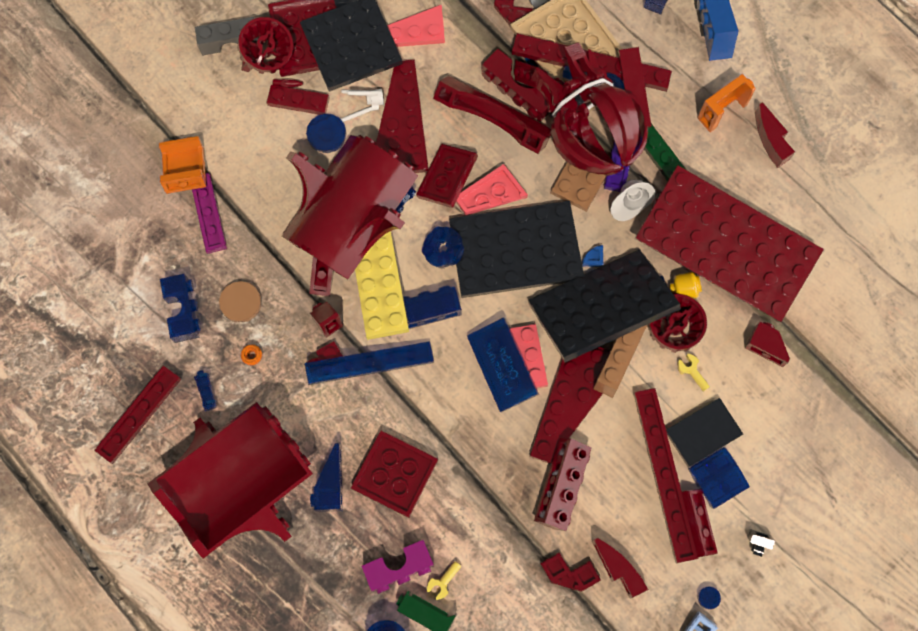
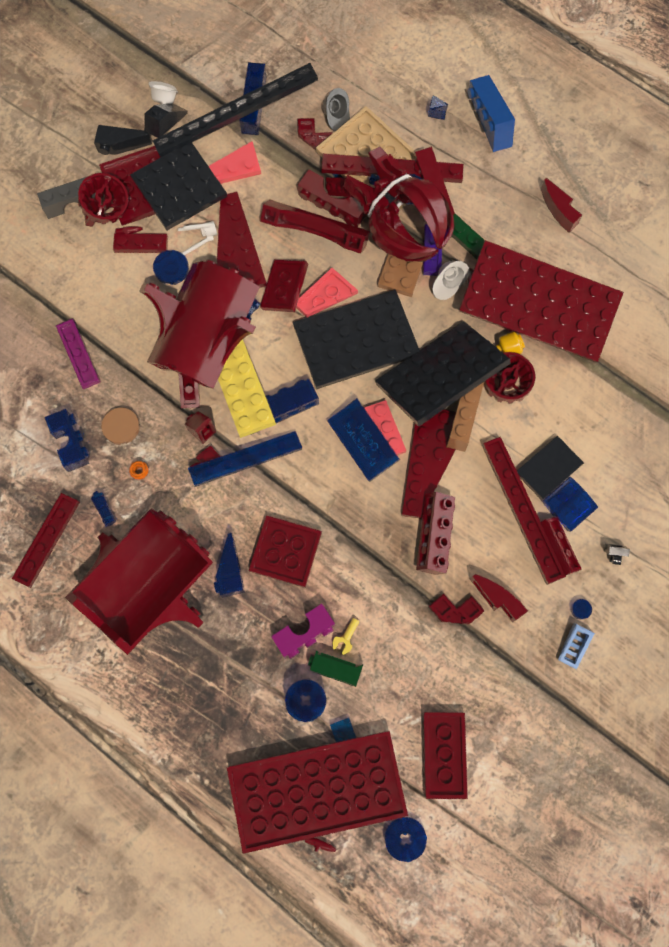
camera: 10 degrees left, 0 degrees up
(182, 165) = (47, 315): orange panel -> none
(435, 239) = (296, 356): clear blue plate -> none
(594, 257) = (426, 334): blue tile -> none
(692, 370) = (530, 417): light yellow bar -> none
(739, 89) = (523, 171): orange panel -> none
(768, 344) = (591, 382): dark red slope -> none

